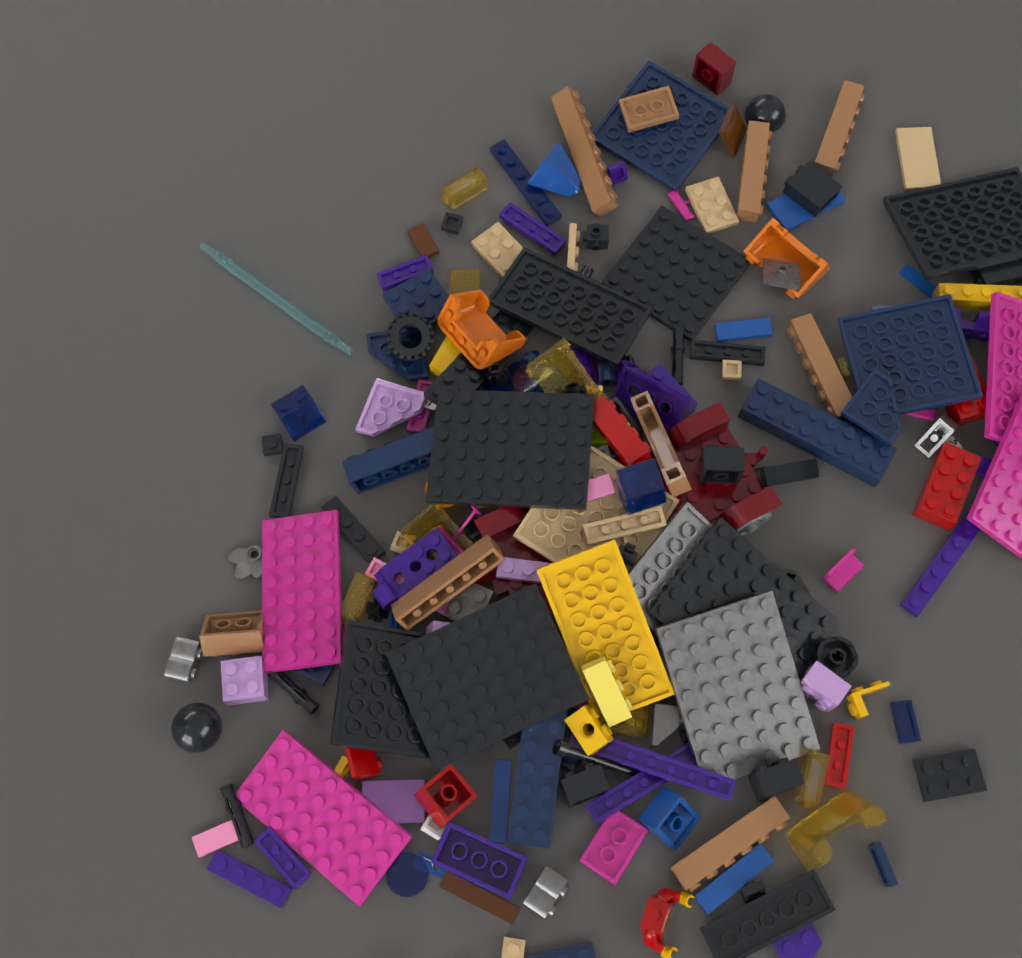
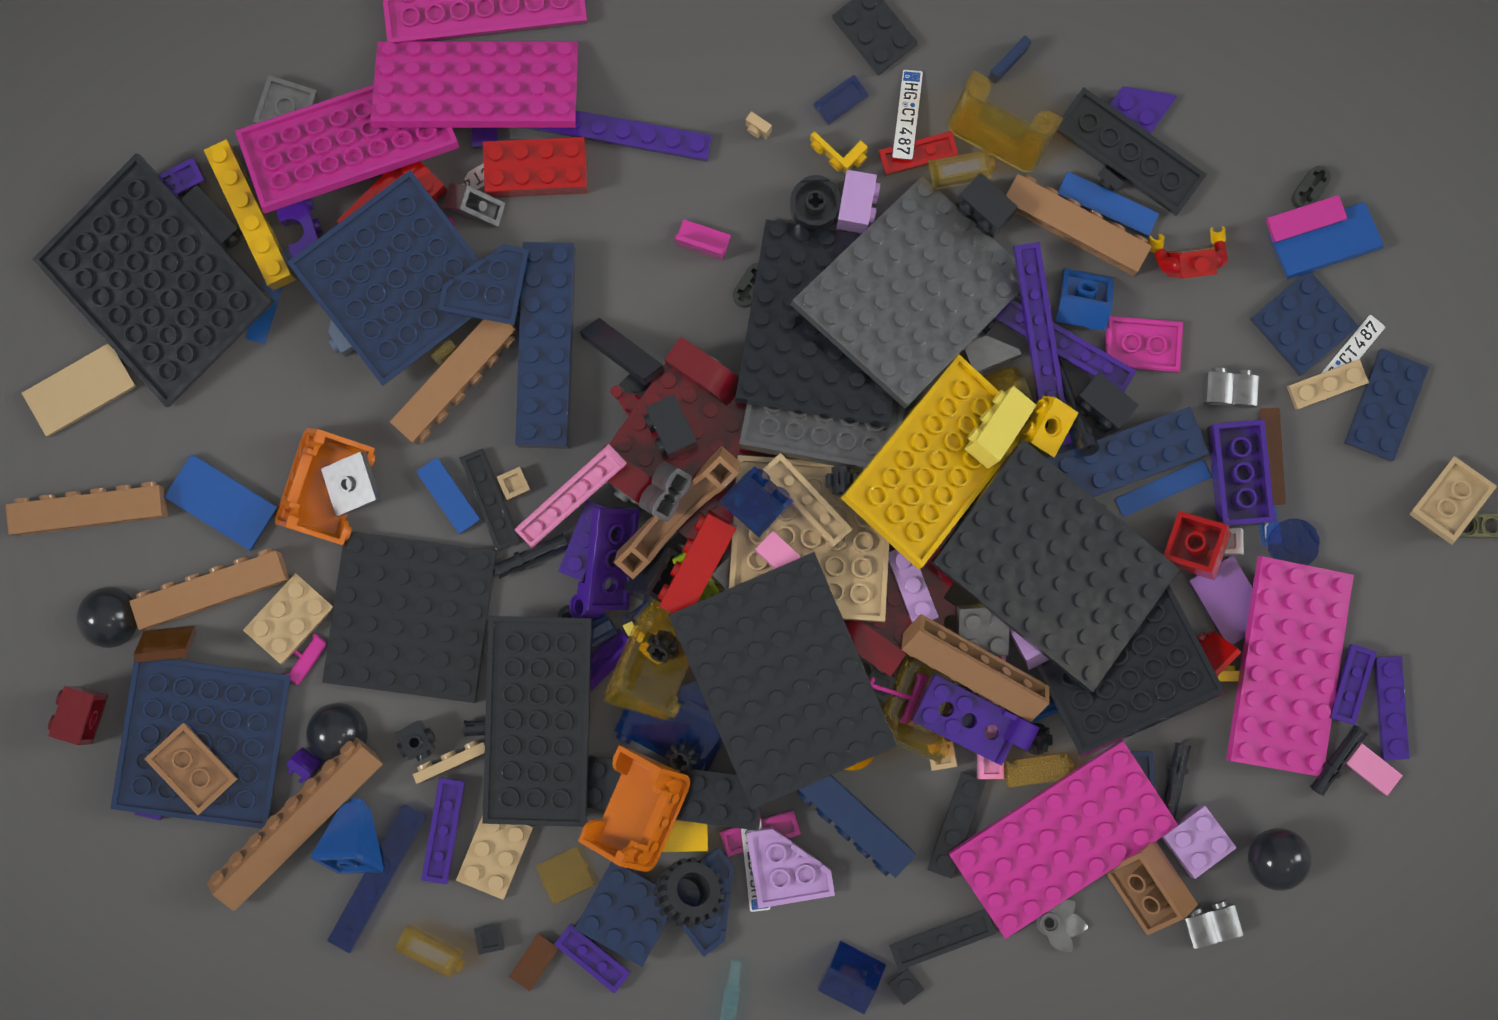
camera: 120 degrees left, 15 degrees up
(630, 200) = (332, 728): none -> black piece
(677, 436) = (667, 488): none -> flat silver brick
(706, 388) = (570, 495): none -> bright pink tile
(811, 188) = (203, 502): black brick -> none
(873, 763) = (907, 114): none -> white sticker
(911, 649) = (758, 126): none -> tan plate

